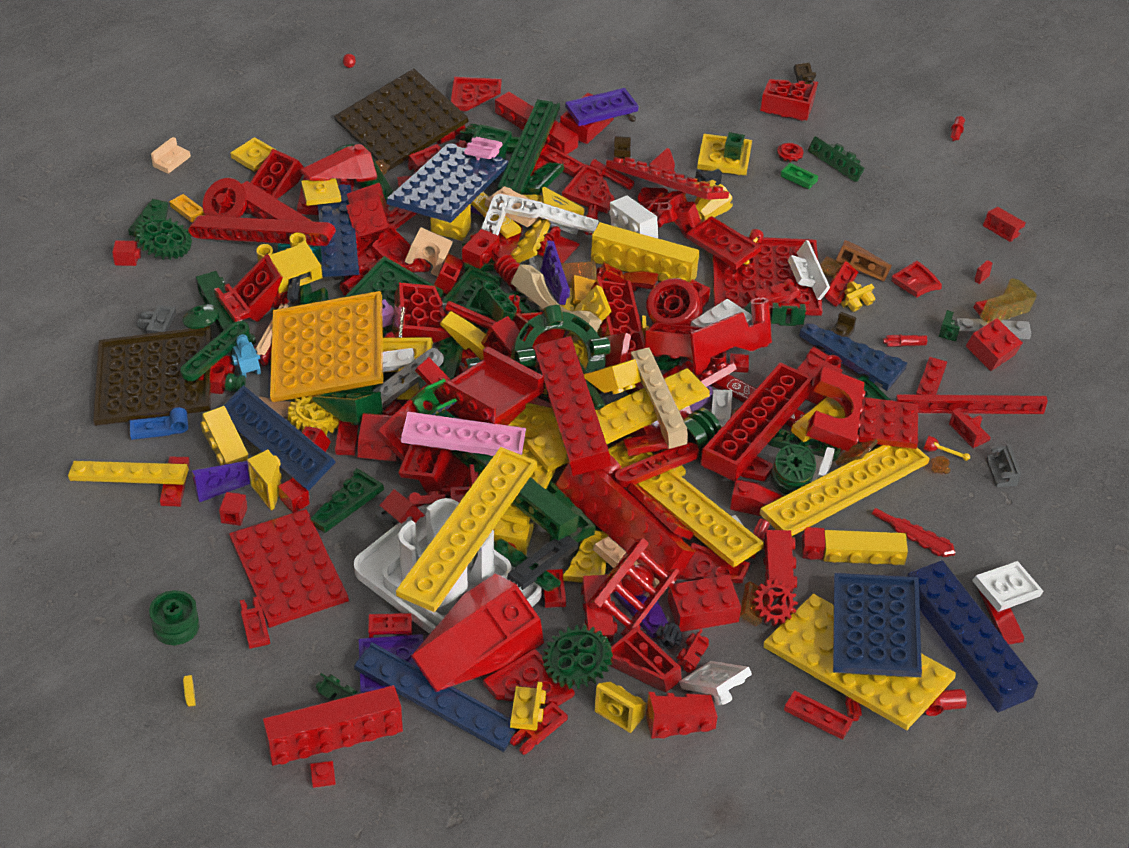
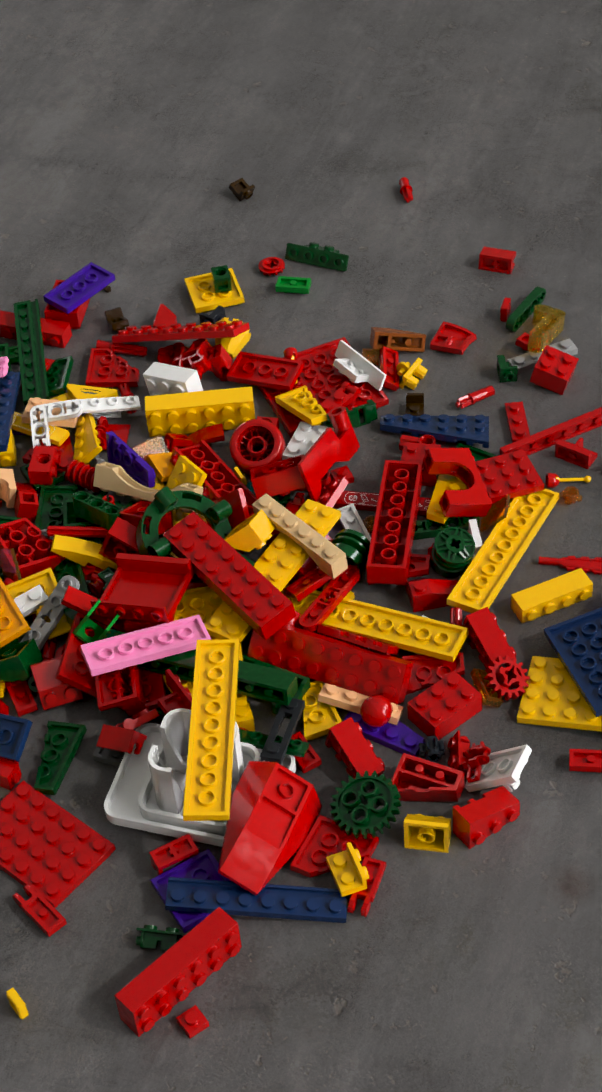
camera: 20 degrees left, 0 degrees up
(553, 155) = (55, 351): red plate -> none
(613, 583) = (361, 718): red fence -> none
(703, 662) = (479, 757): none -> red piece
(737, 285) = (302, 405): none -> yellow wing
(789, 98) = (243, 217): red wedge -> none
(813, 543) = (506, 610): red brick -> none
(1000, 279) = (525, 309): none -> dark green beam

